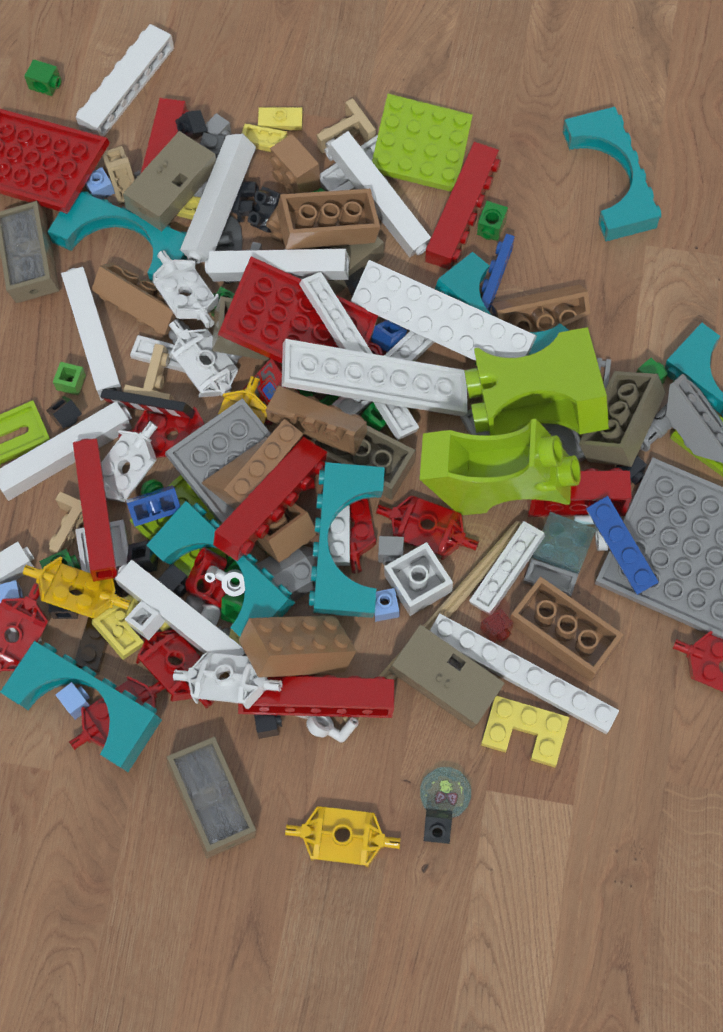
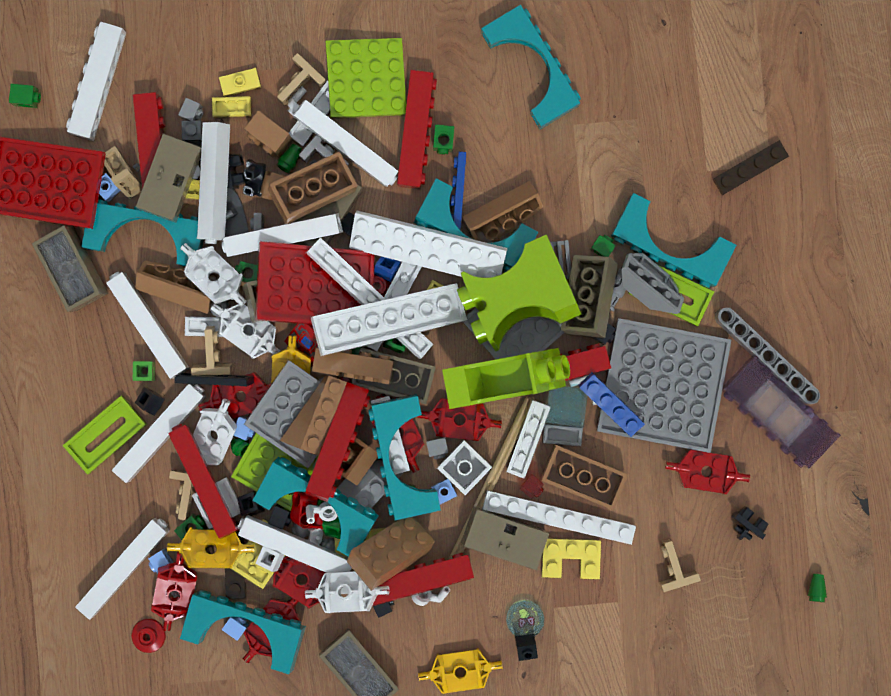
camera: 20 degrees left, 20 degrees up
(153, 505) = (247, 466): blue brick -> none
(163, 470) = (243, 431): none -> light blue plate
(192, 124) = (169, 116): black plate -> none
(658, 778) = (679, 579): none -> tan bracket

